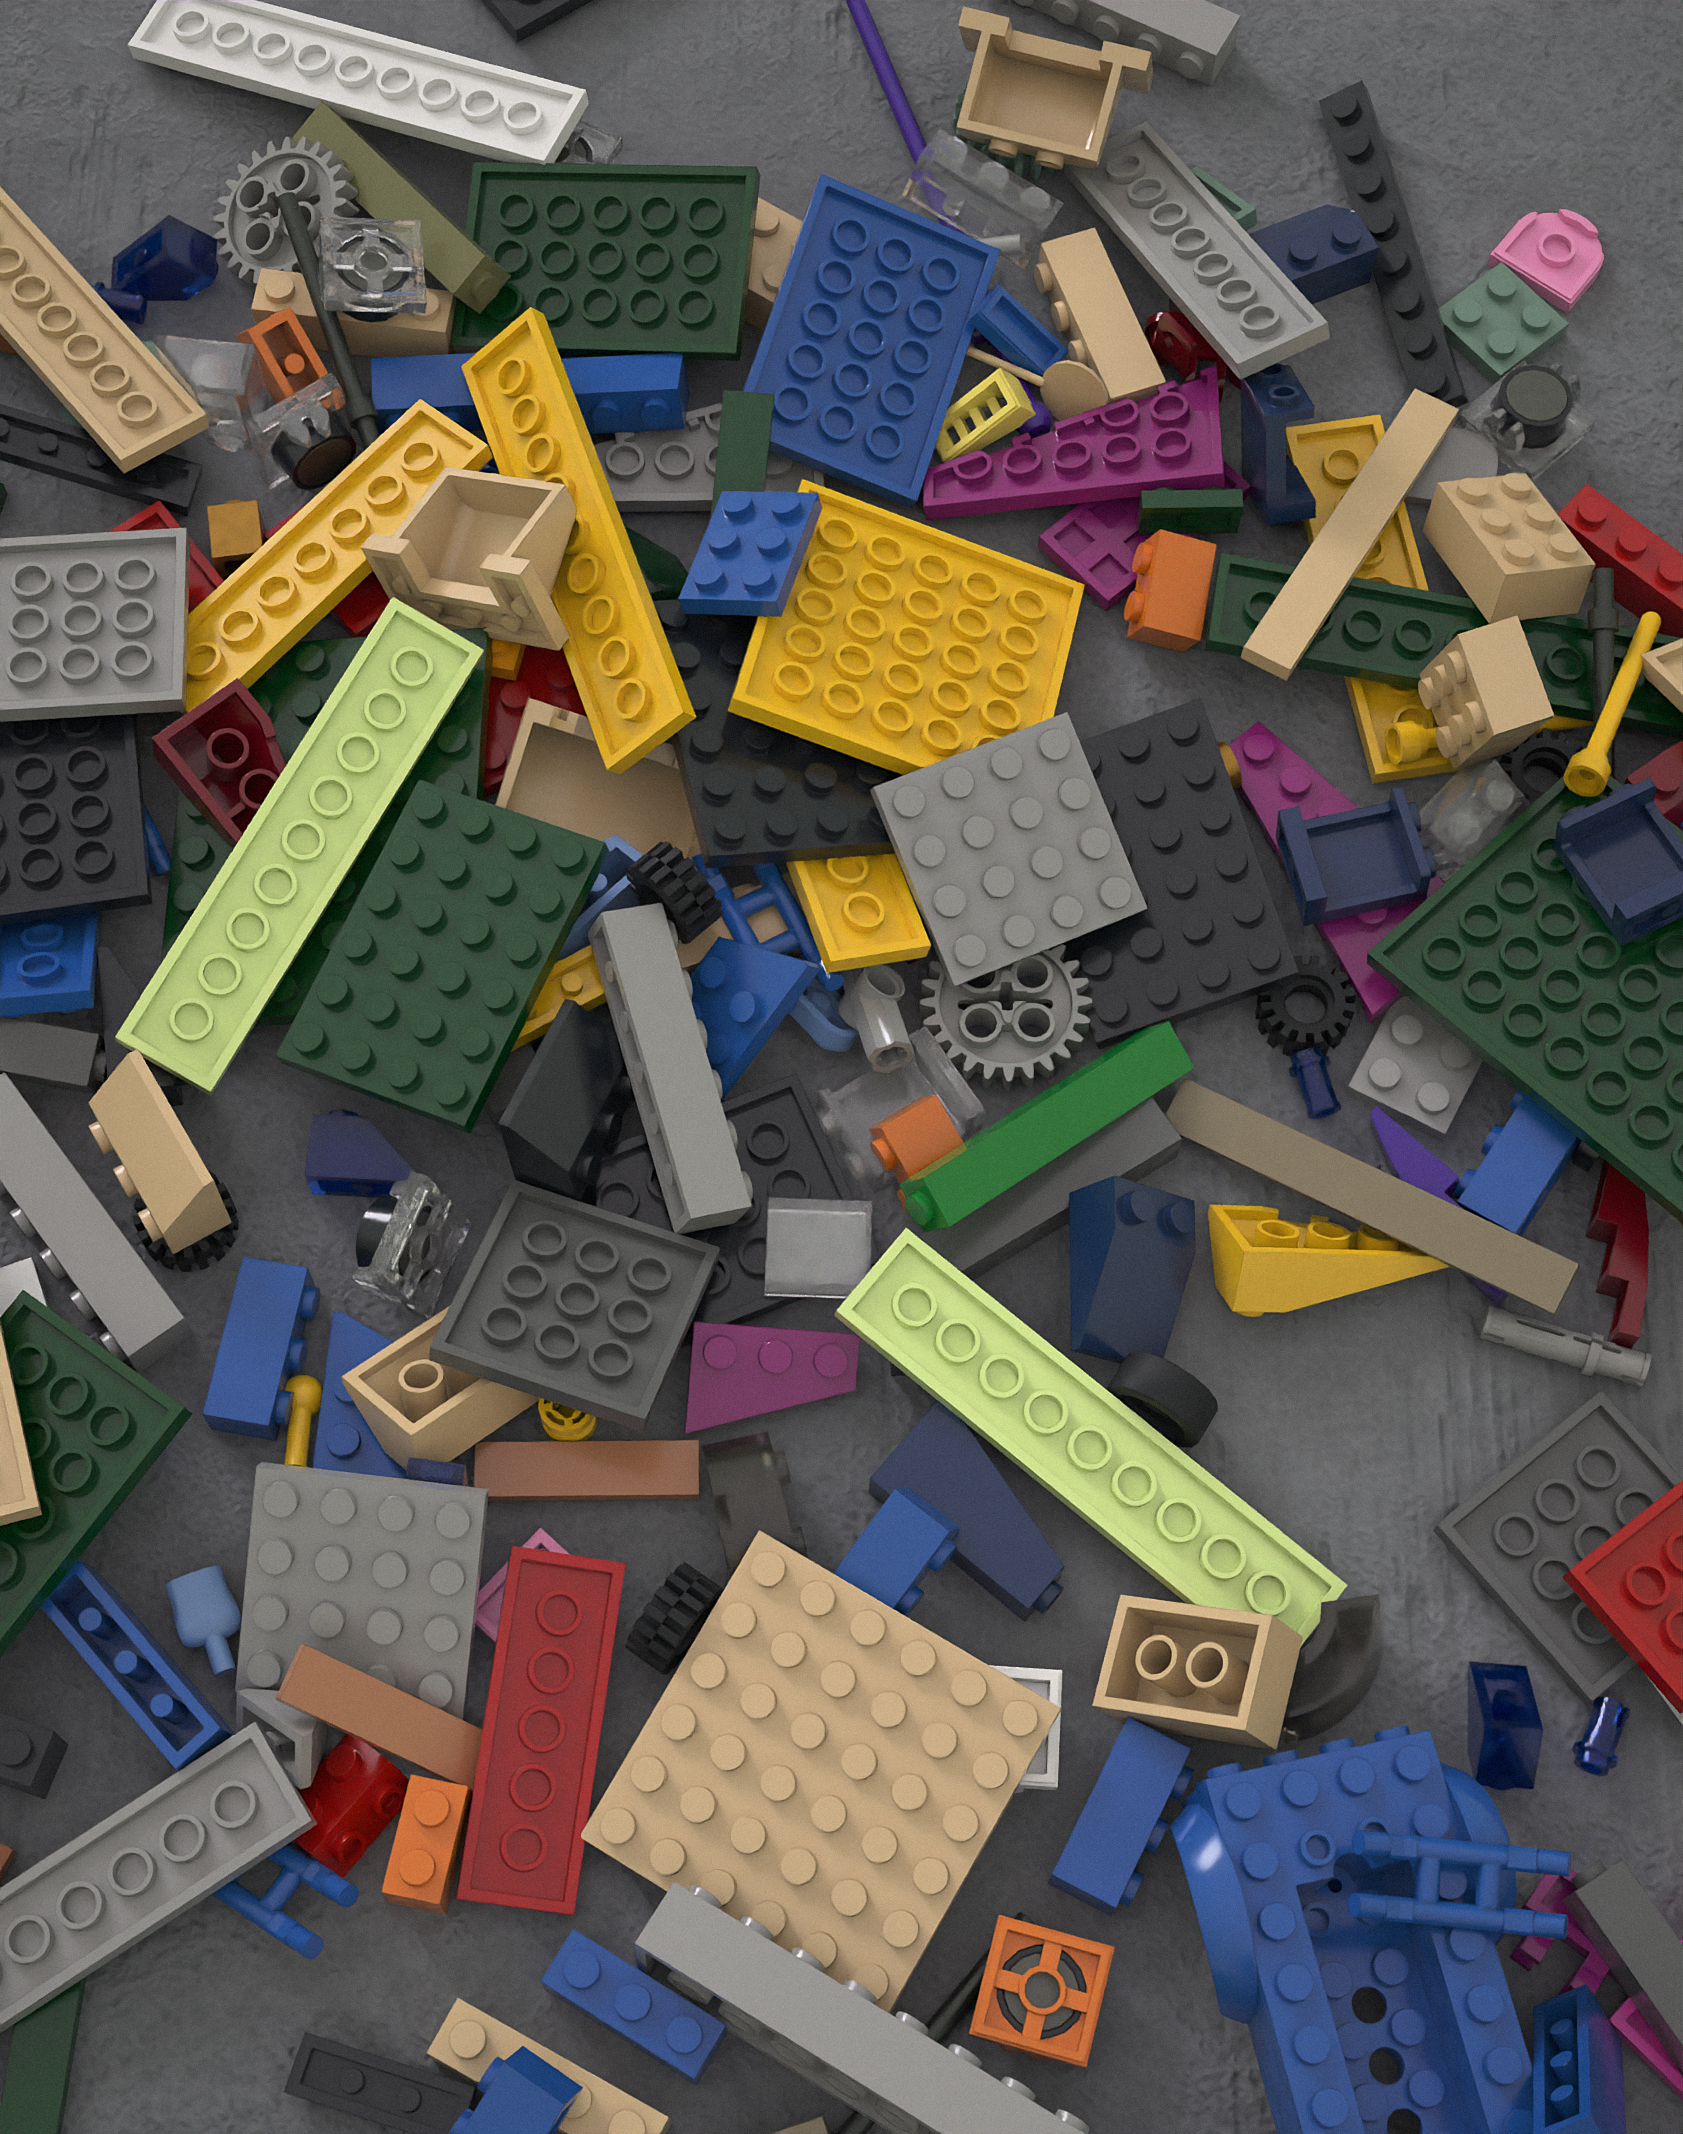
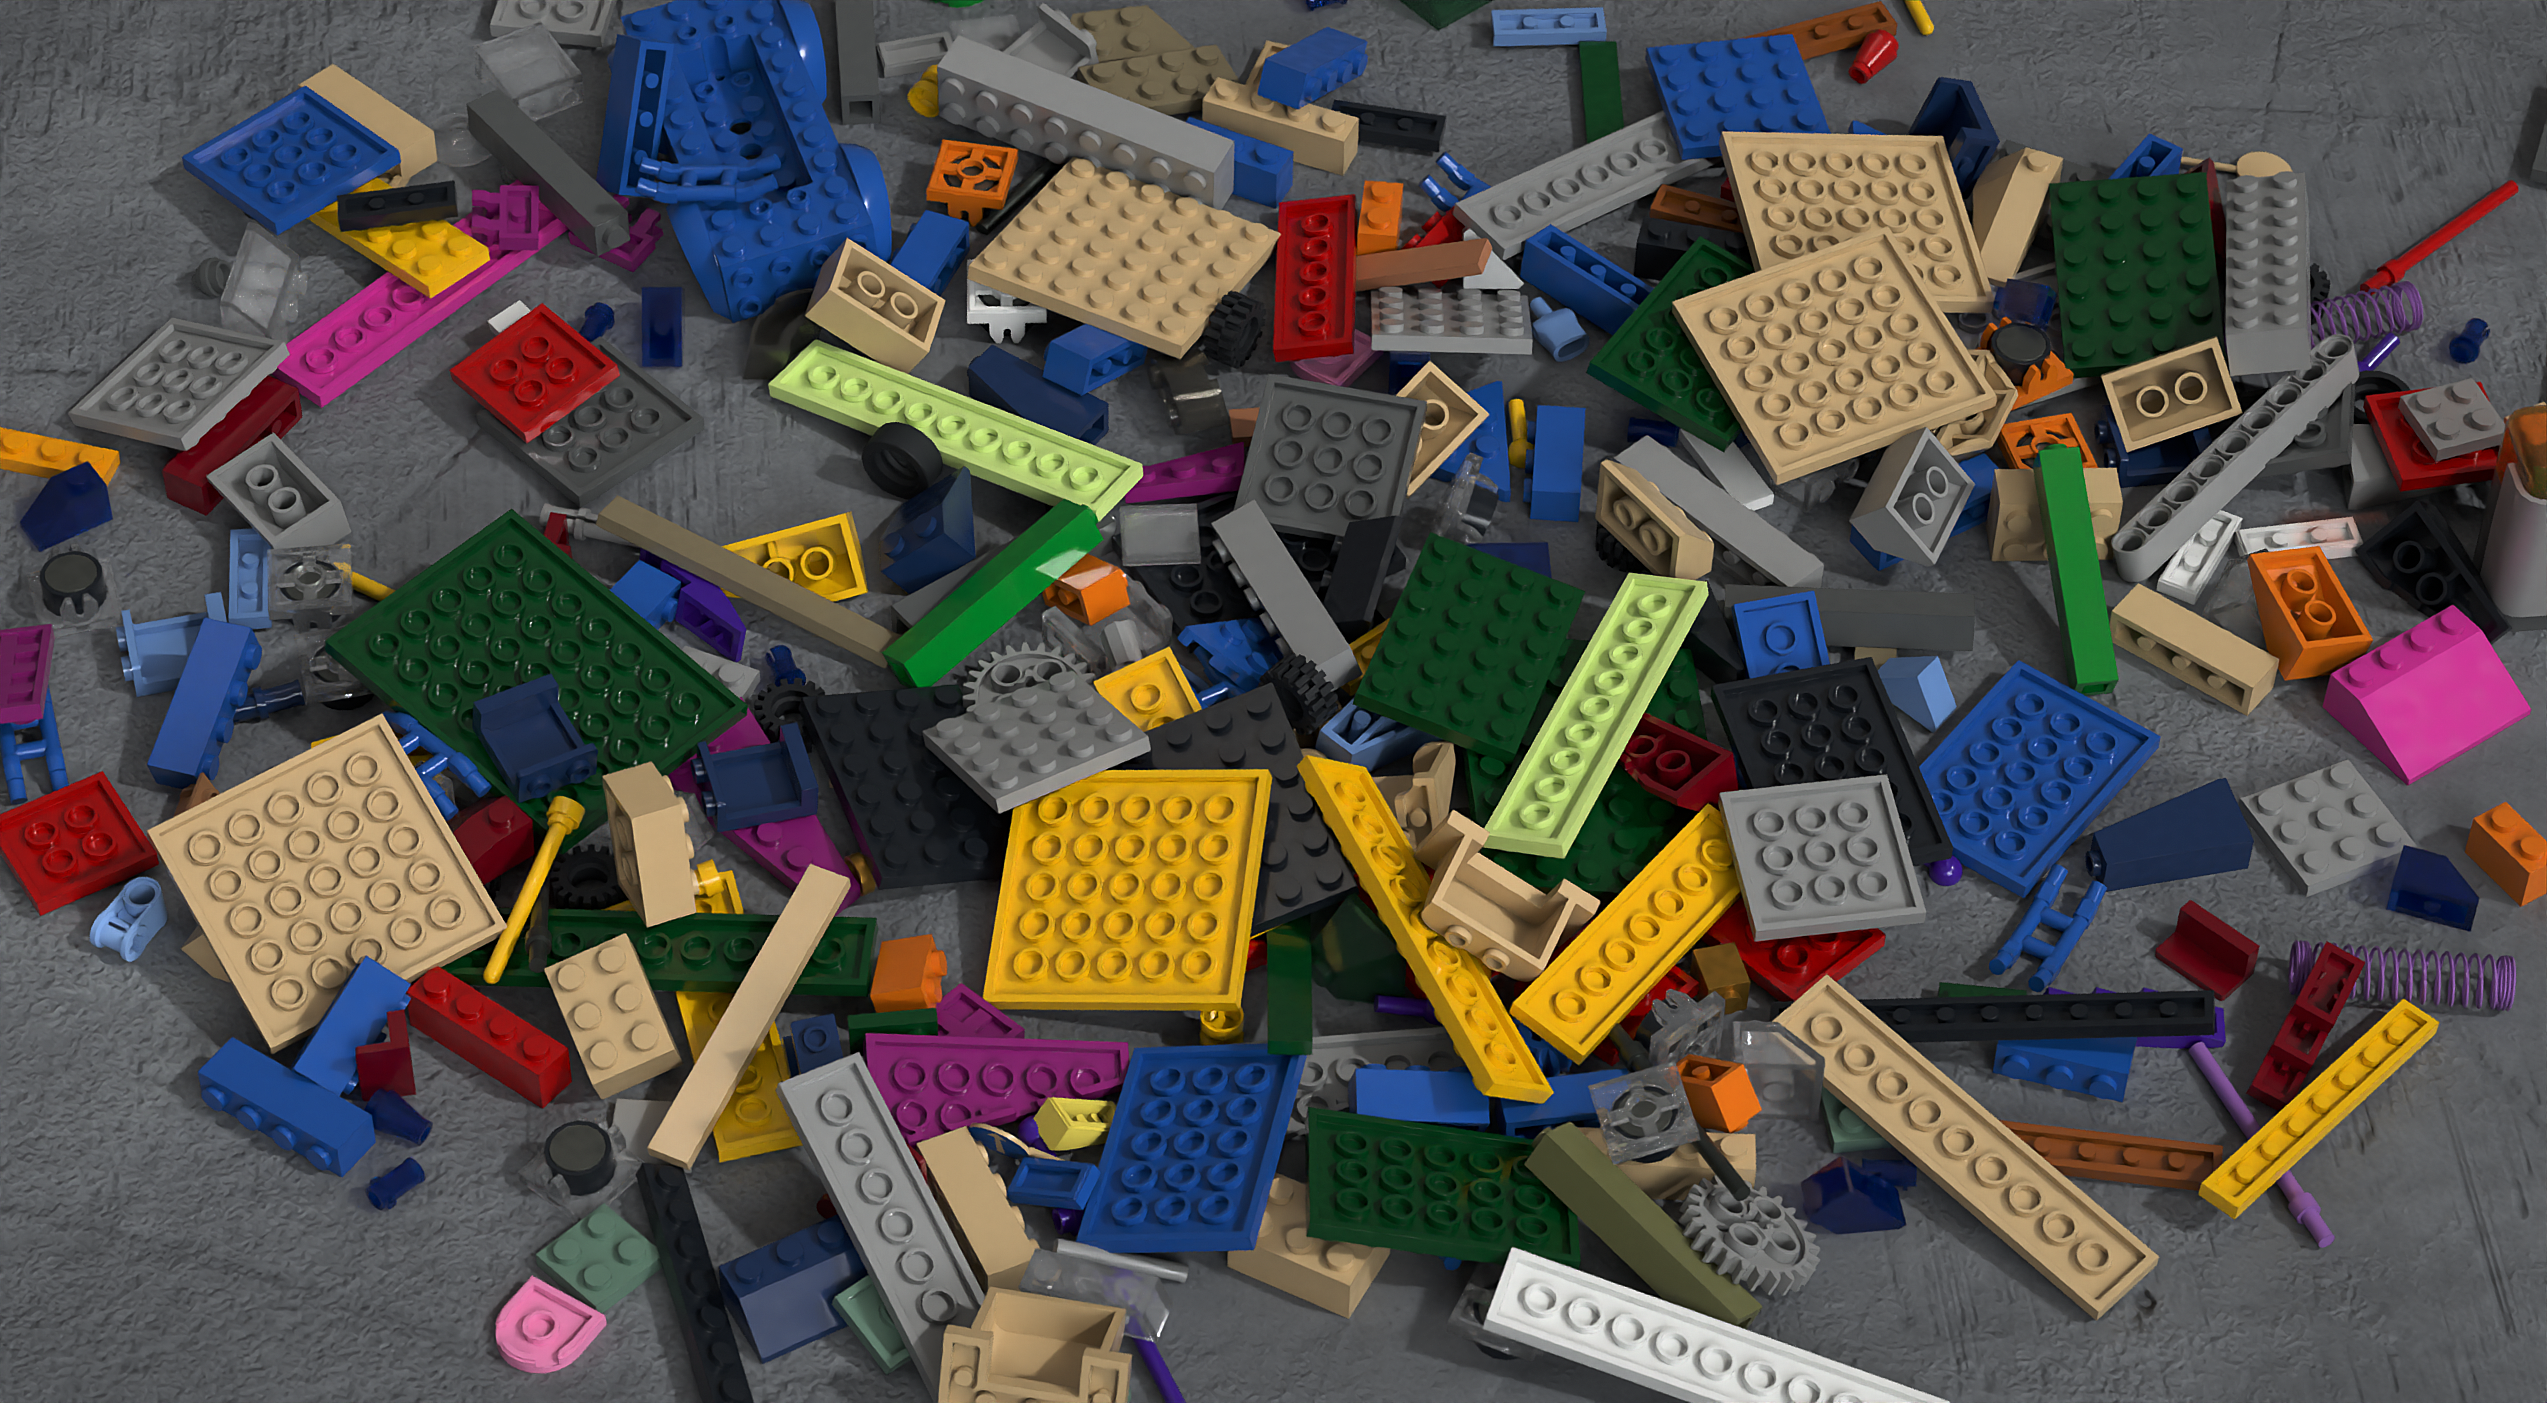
camera: 175 degrees right, 20 degrees down
(750, 553) = (1270, 912): blue plate -> none

